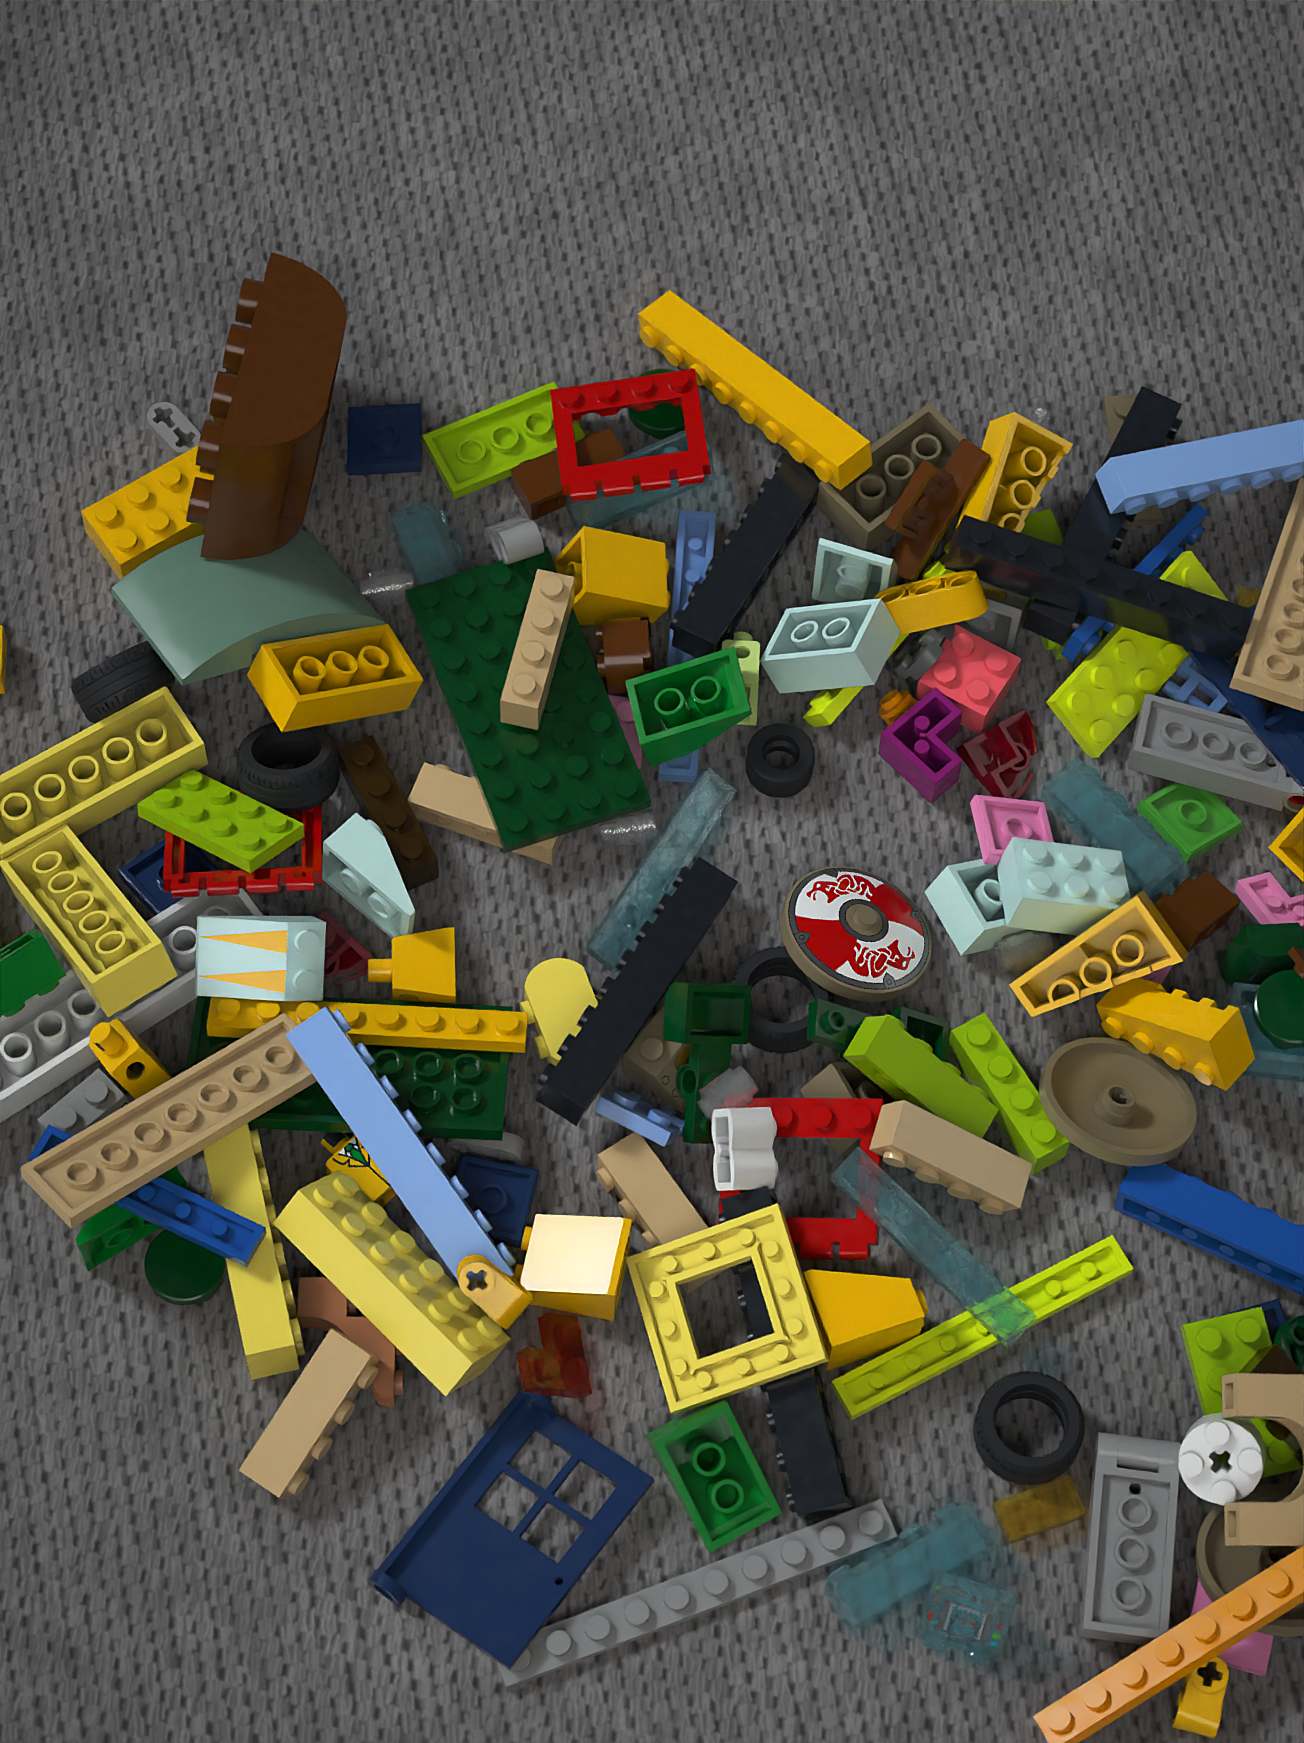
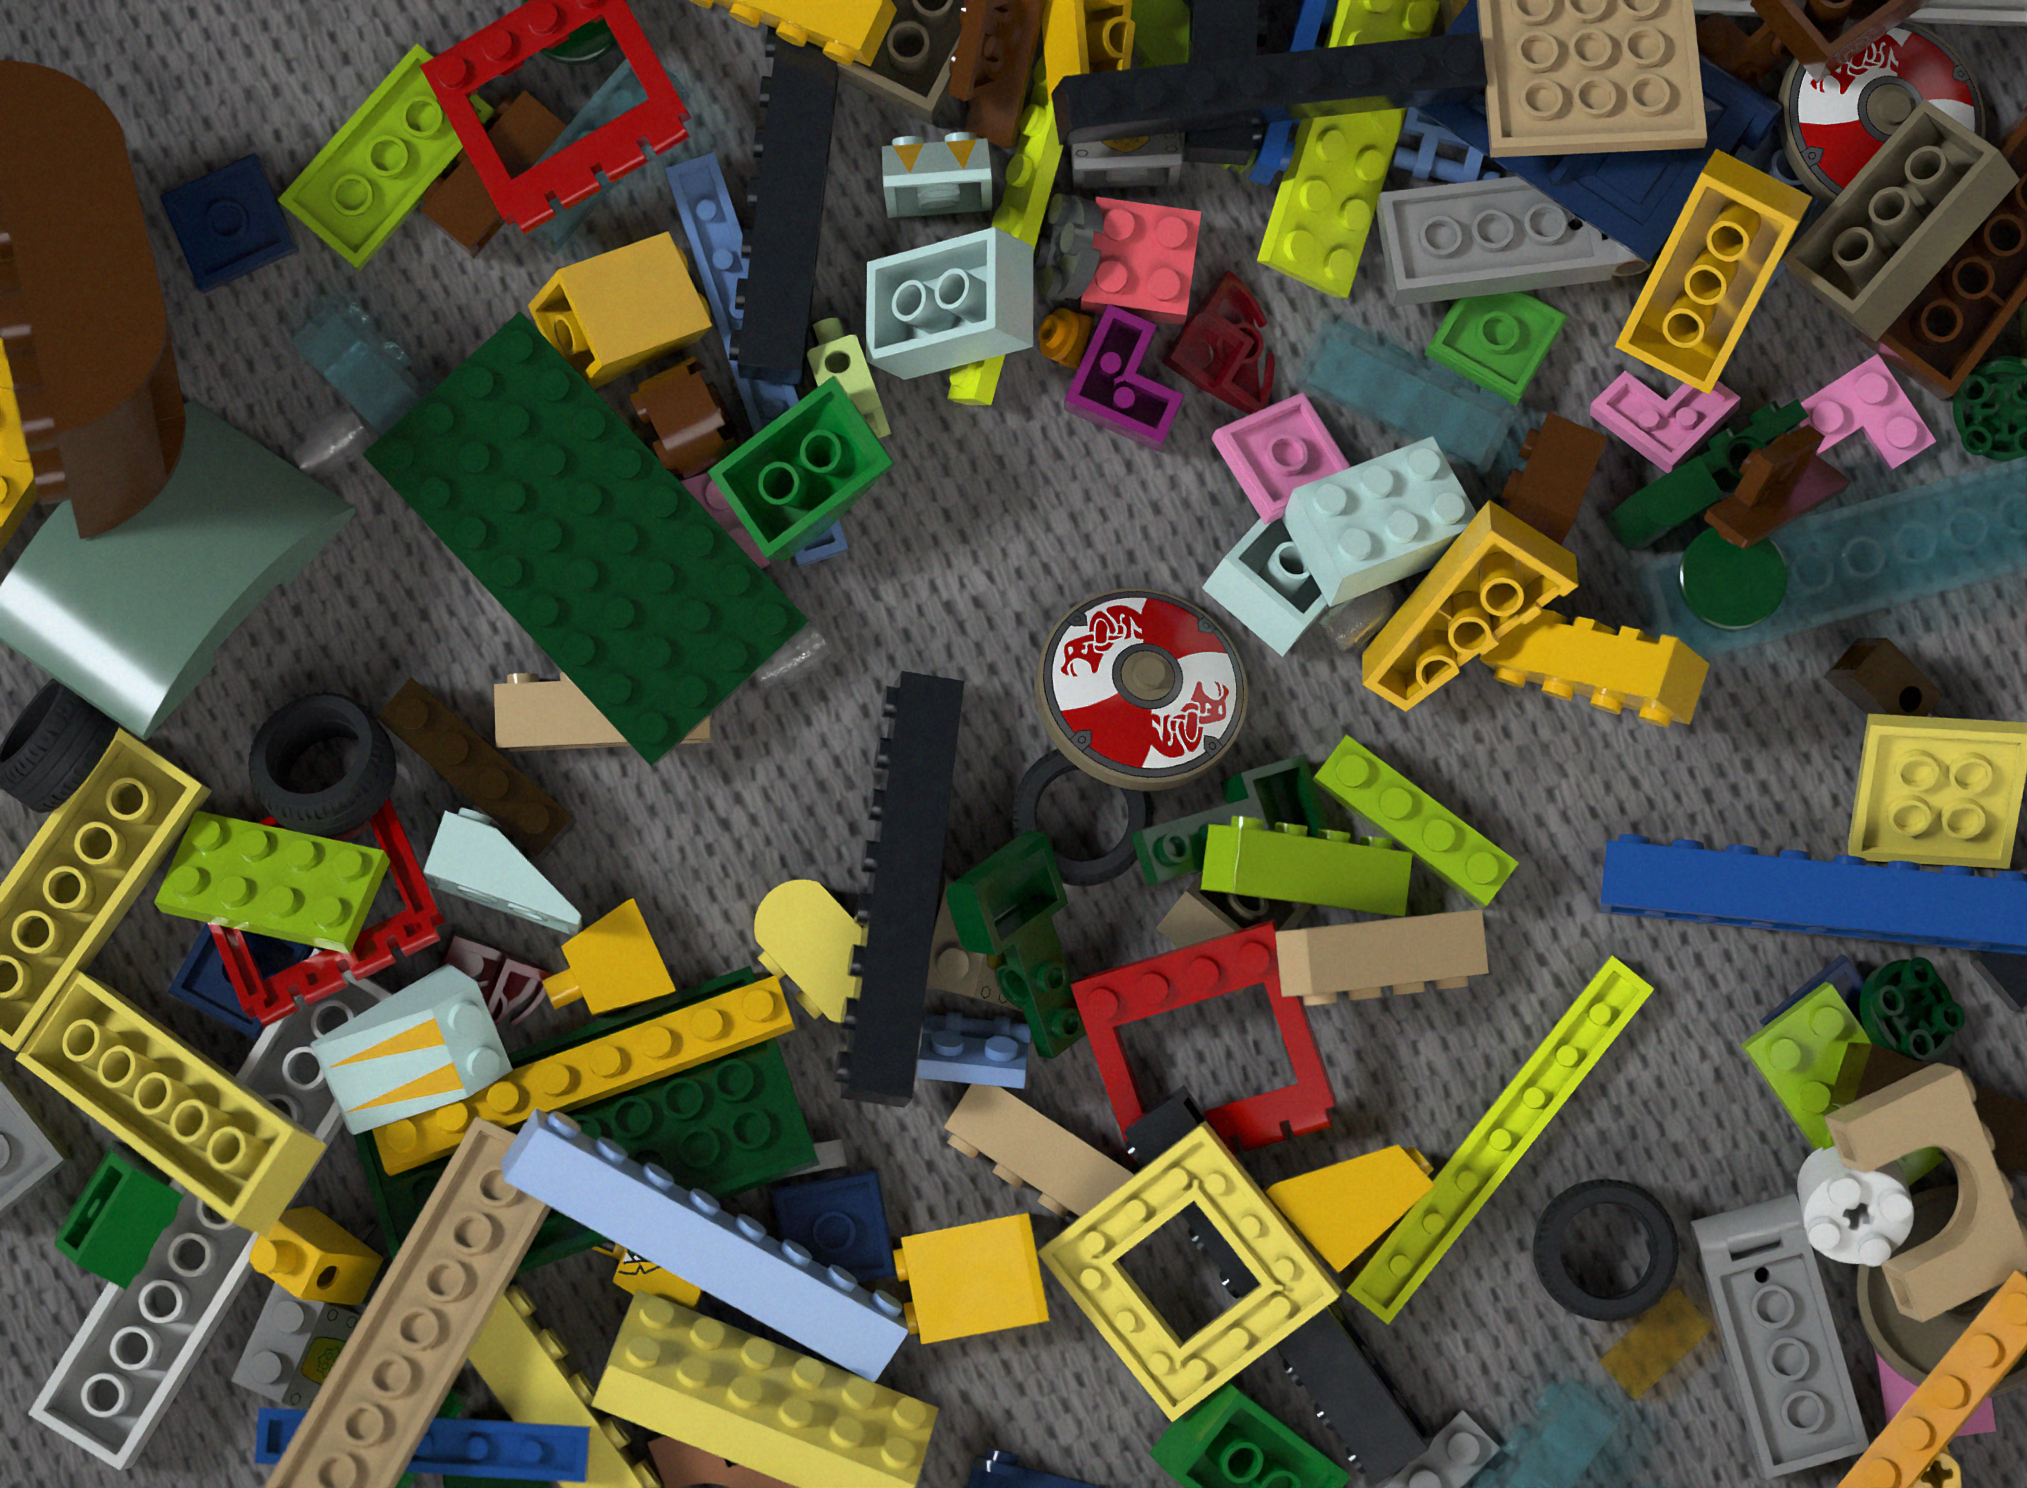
camera: 20 degrees left, 20 degrees up
(334, 677) = (328, 621): yellow brick -> none
(497, 1294) = (893, 1366): yellow piece -> none
(514, 539) = (471, 318): light grey beam -> none
(537, 649) = (577, 481): tan brick -> none
(561, 1364) = (1016, 1408): clear red plate -> none
(660, 866) = (856, 696): clear light blue plate -> none
(728, 1090) = (1075, 992): clear brick -> none
(744, 1148) = (1126, 1057): white brick -> none
(774, 781) = (944, 445): black tyre -> none
(932, 1247) = (1405, 1085): clear light blue plate -> none
(935, 601) = (1061, 194): yellow beam -> none
(1117, 1101) = (1555, 784): dark tan dish -> none

